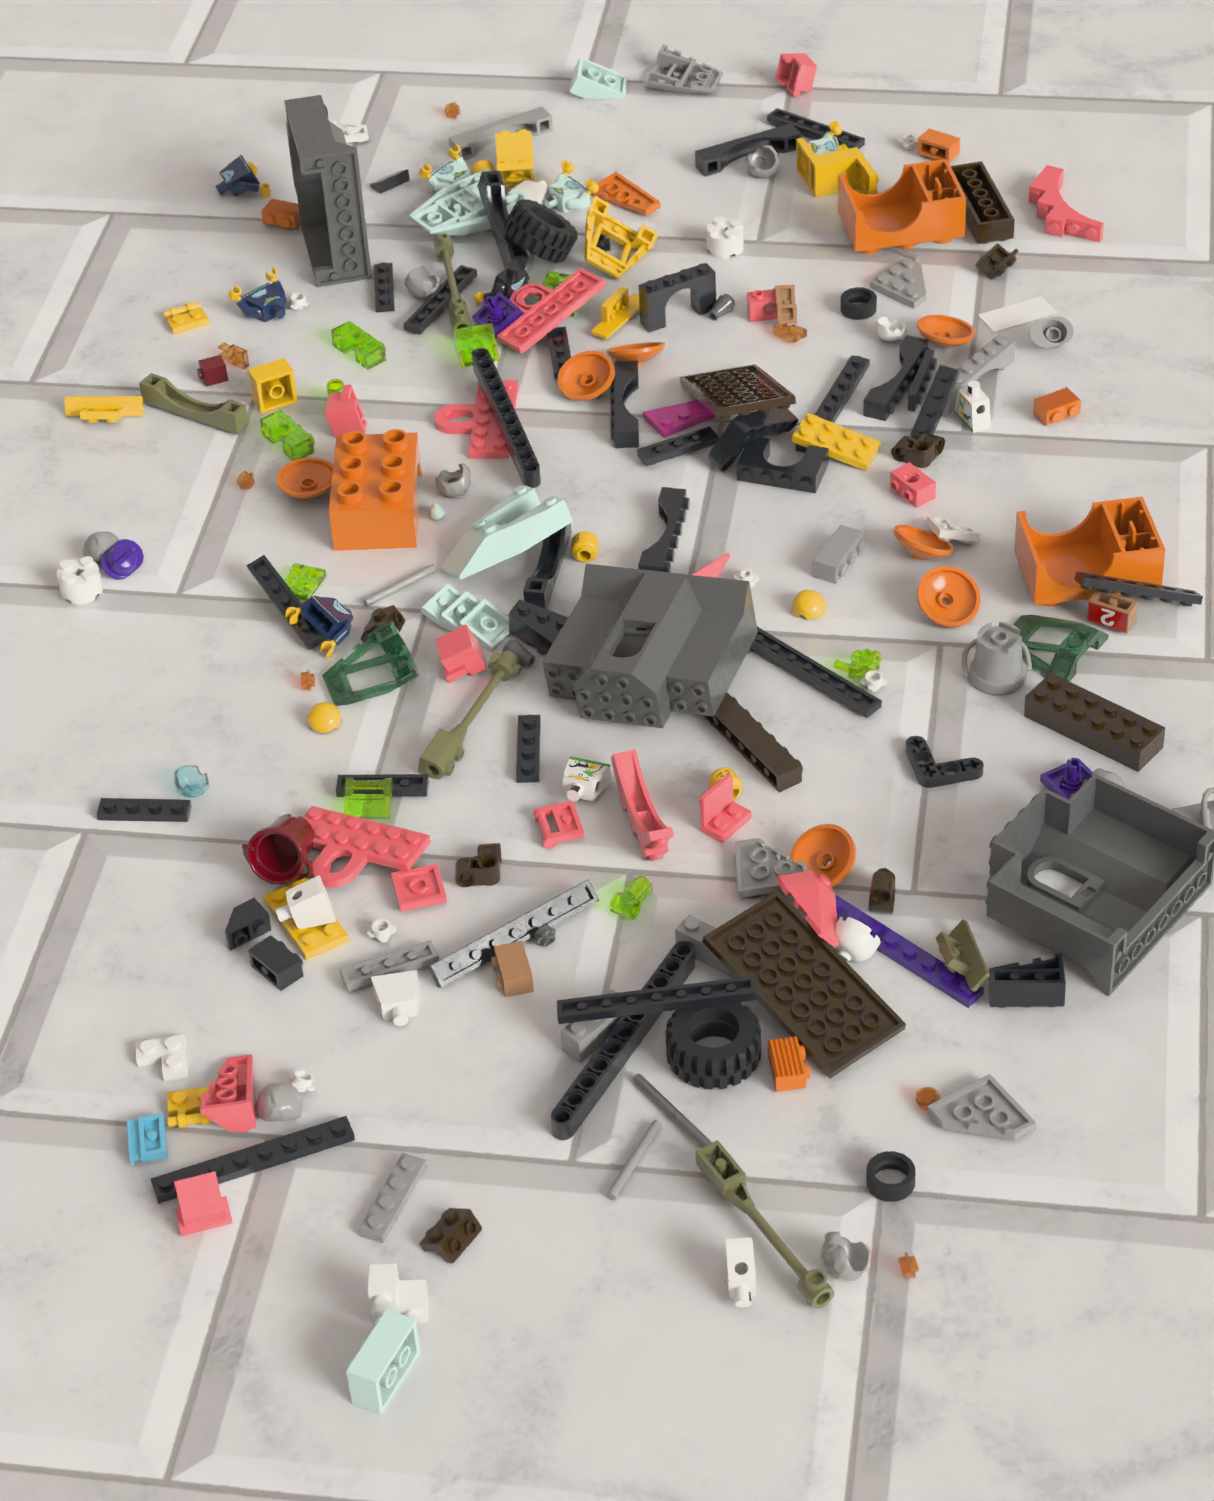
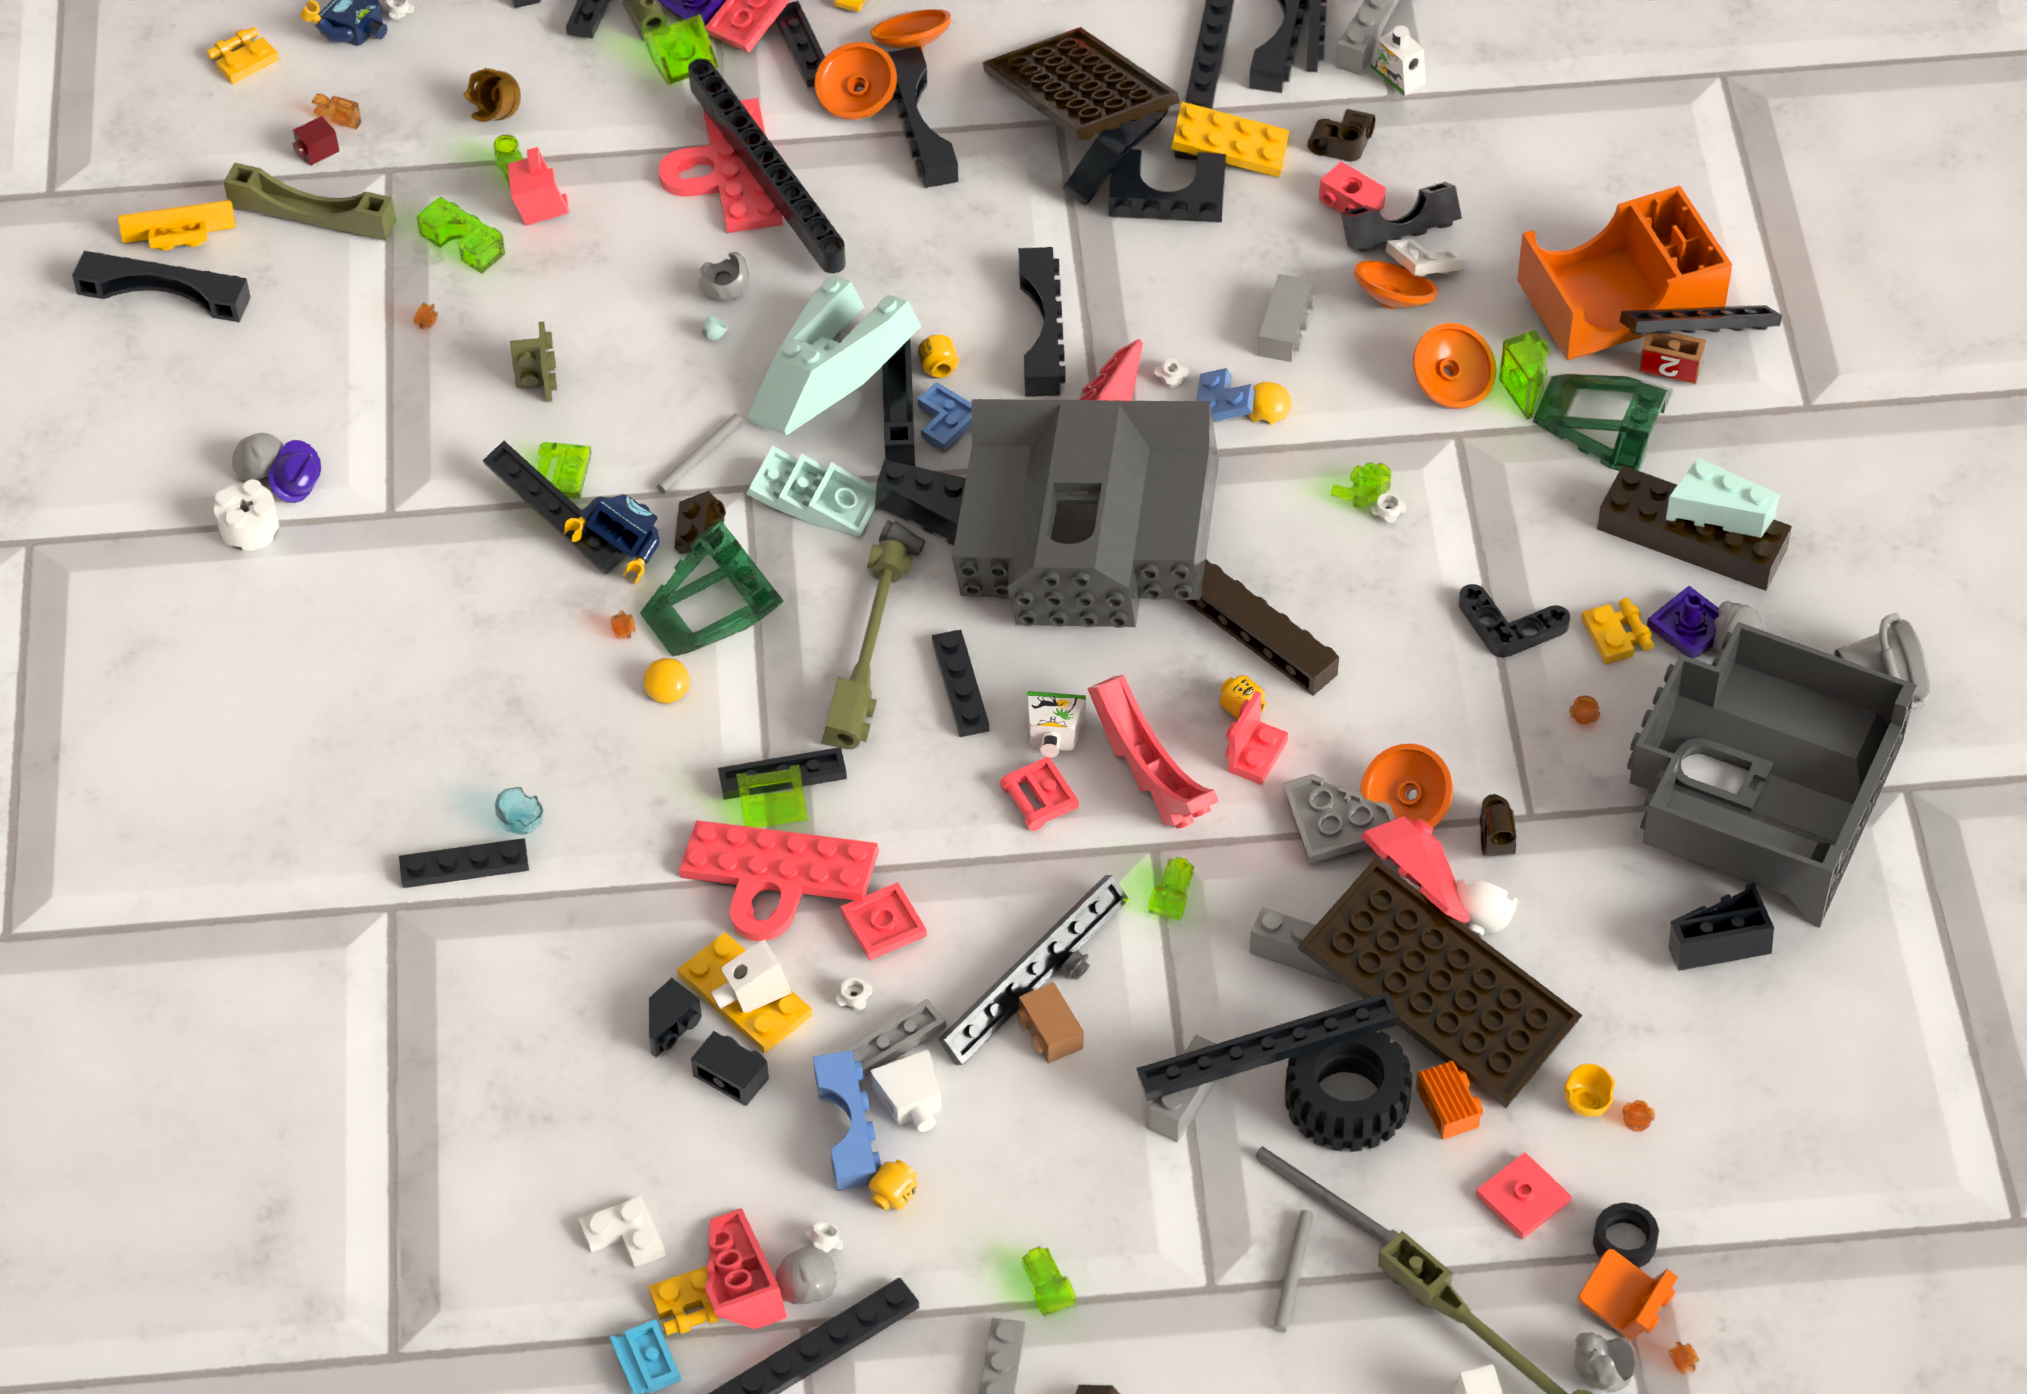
camera: 15 degrees left, 10 degrees up
(49, 431) = (109, 275): none -> black arch
(272, 385) = (416, 157): yellow brick -> none
(281, 850) = (688, 901): dark red piece -> none
(305, 478) = (516, 301): orange dish -> none
(305, 513) = (535, 362): none -> olive bracket
(340, 1032) = (838, 1083): none -> medium blue arch
(341, 356) = (495, 95): none -> pearl gold helmet
(362, 1055) = (893, 1185): none -> yellow head
(368, 350) = (533, 76): clear neon green arch -> none
(375, 491) = (625, 312): orange piece -> none
(451, 1139) = (1049, 1287): none -> clear neon green piece
(460, 653) = (824, 554): coral plate -> none
(480, 869) = (960, 878): dark brown piece -> none
(571, 592) = (951, 416): none -> medium blue plate
(617, 1047) = (1225, 1111): black beam -> none
(677, 417) = (997, 127): dark pink wing -> none
(677, 446) = (1014, 175): black plate -> none
(775, 596) = (1225, 401): none -> medium blue plate
(815, 674) = (1311, 510): black plate -> none
(823, 1137) = (1523, 1195): none -> coral plate
(875, 1213) = (1626, 1295): none -> orange bracket
(894, 1073) = (1589, 1090): none -> yellow hair
(912, 956) = (1560, 914): dark purple plate -> none
(935, 401) = (1349, 61): black plate -> none
(963, 955) = (1629, 904): olive bracket -> none
(968, 498) = (1434, 207): none -> black arch
(975, 827) = (1585, 704): none -> clear orange plate
(982, 1110) = (1713, 1121): light grey plate -> none
(997, 659) = (1548, 455): light grey piece -> none
(999, 600) = (1524, 370): none -> clear neon green slope
(1009, 781) = (1609, 635): none -> yellow plate
(1056, 406) = (1508, 41): orange brick -> none
(1113, 698) = (1722, 499): none -> light aqua wedge

